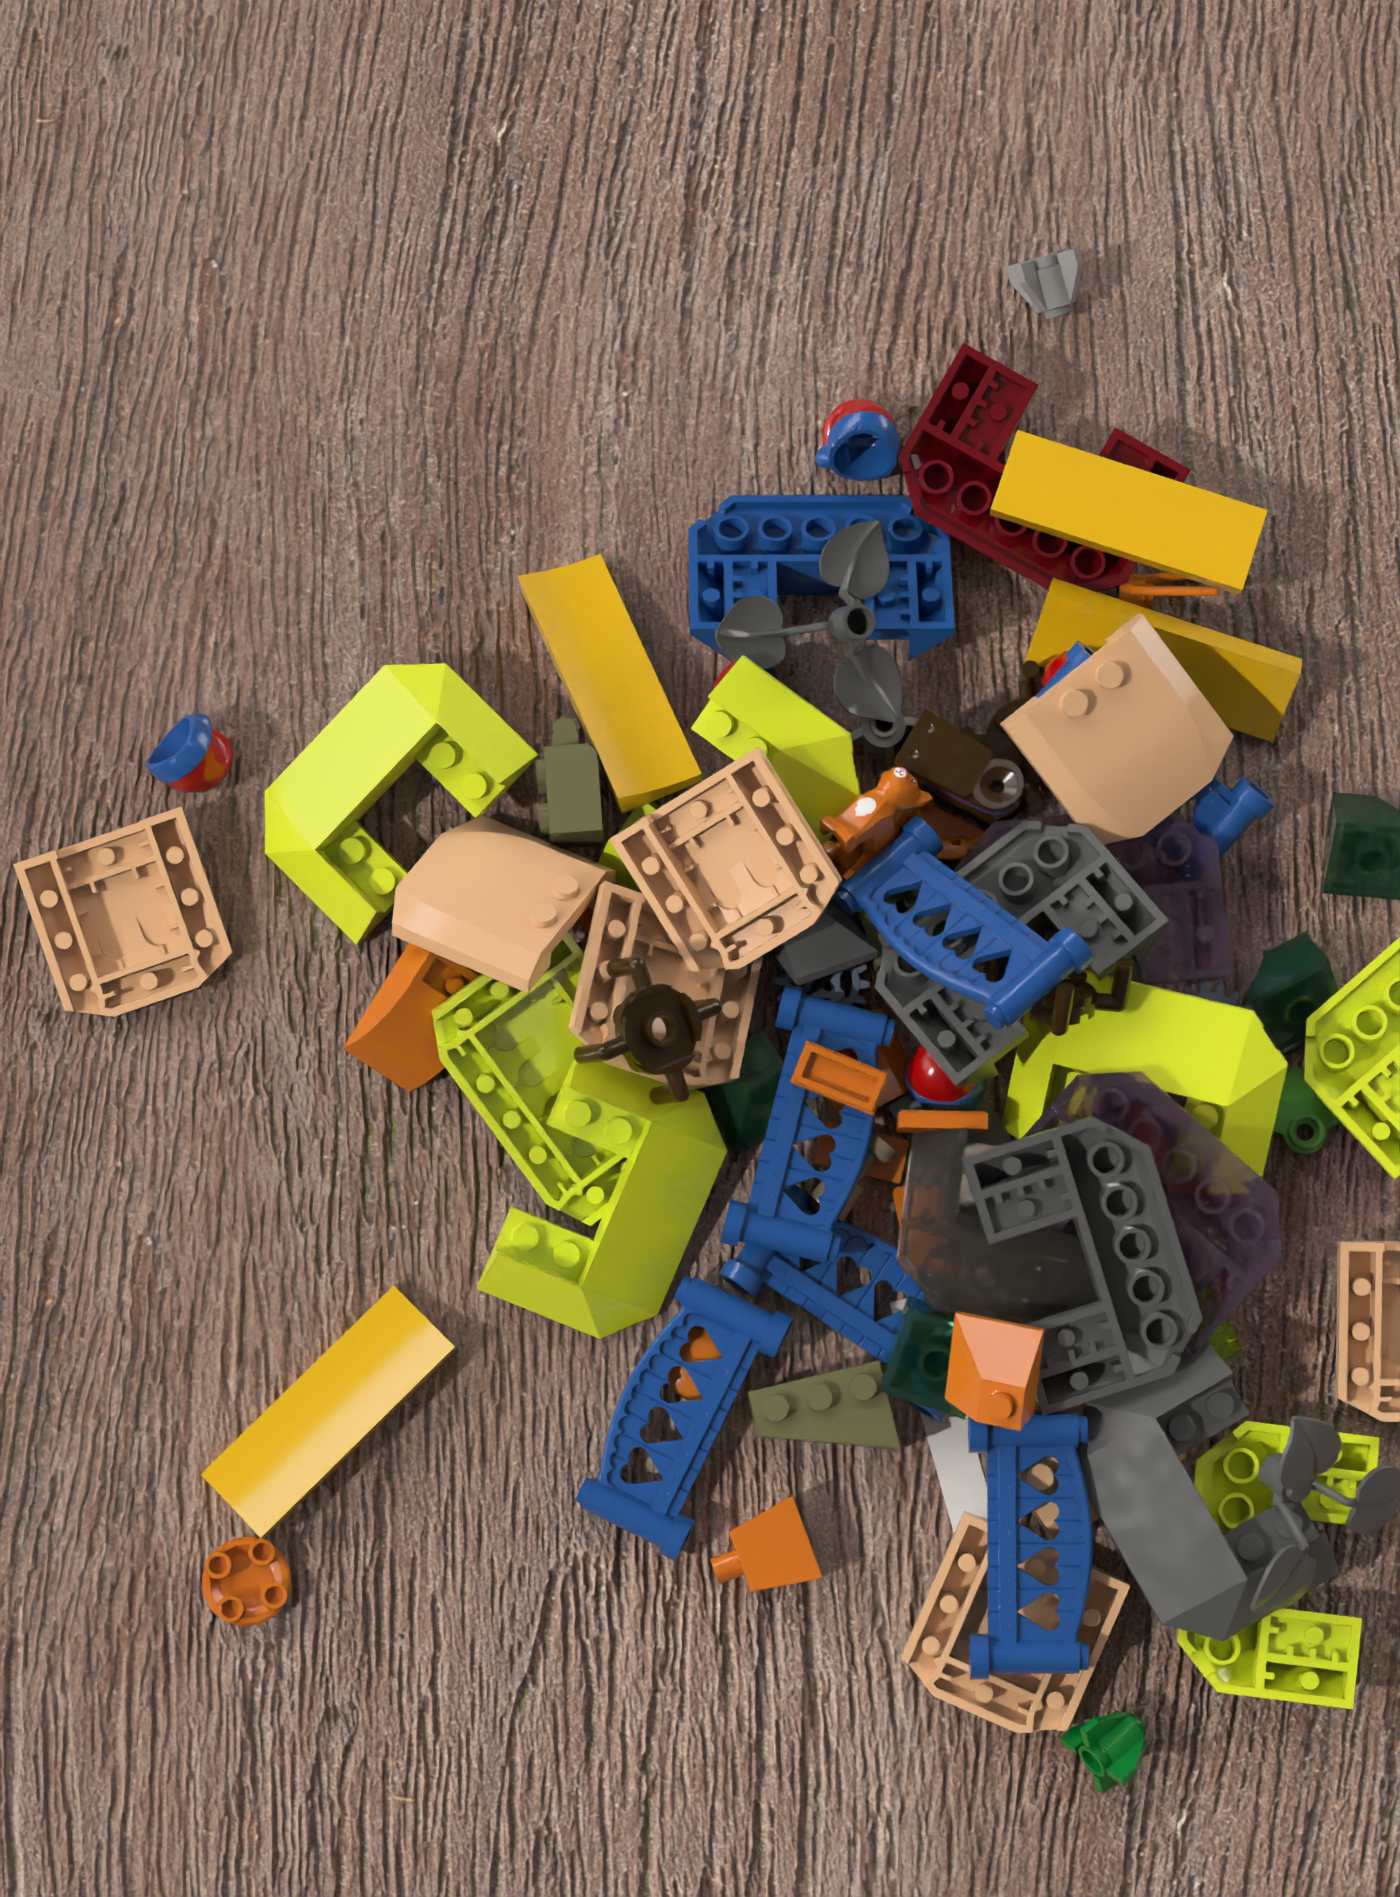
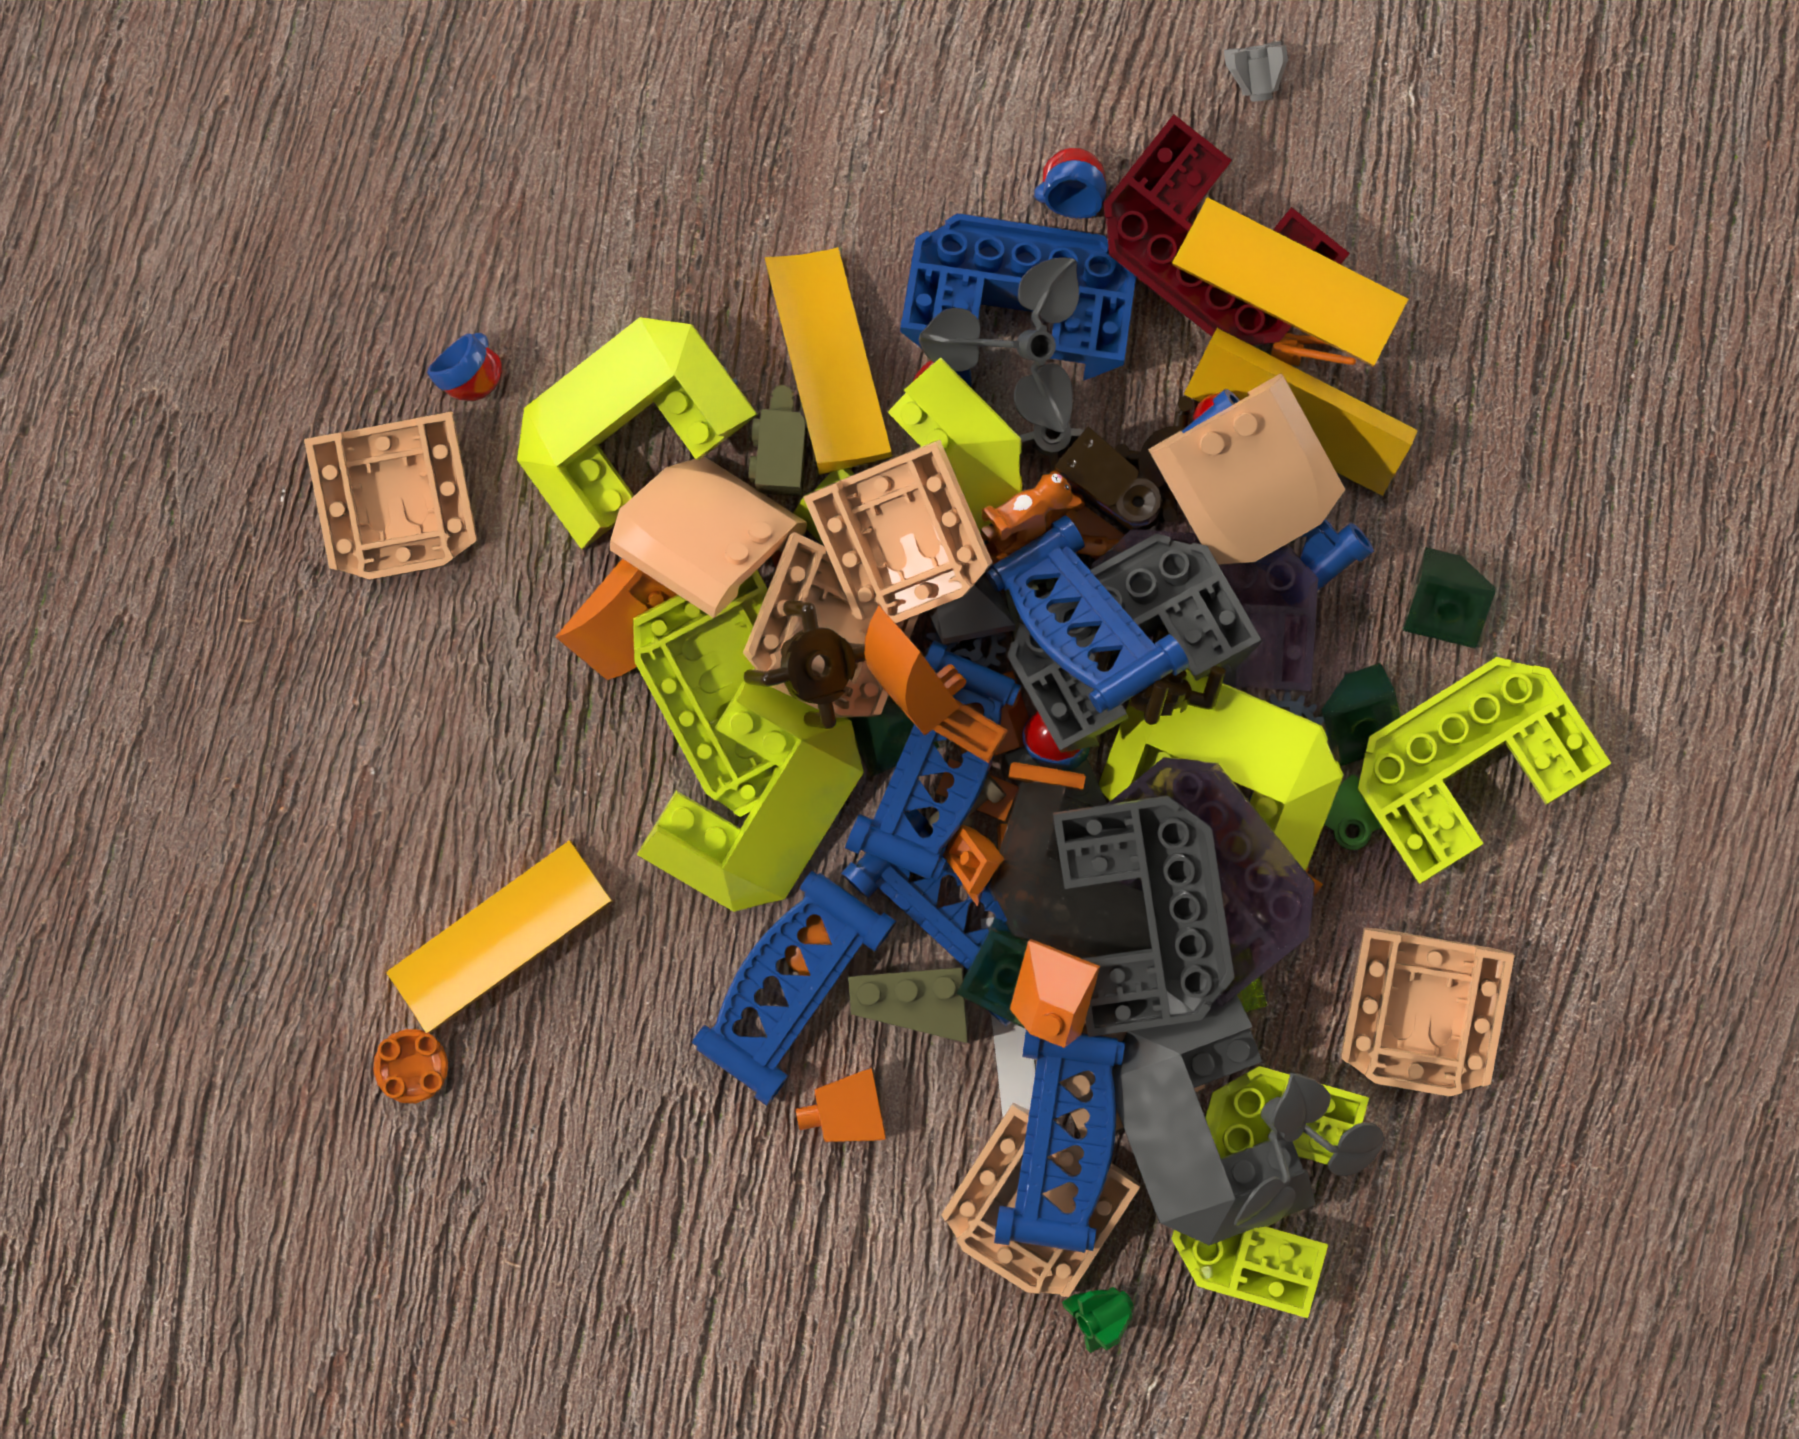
camera: 20 degrees right, 5 degrees up
(765, 1022) = (908, 675): none -> orange piece
(873, 1233) = (973, 860): none -> orange slope

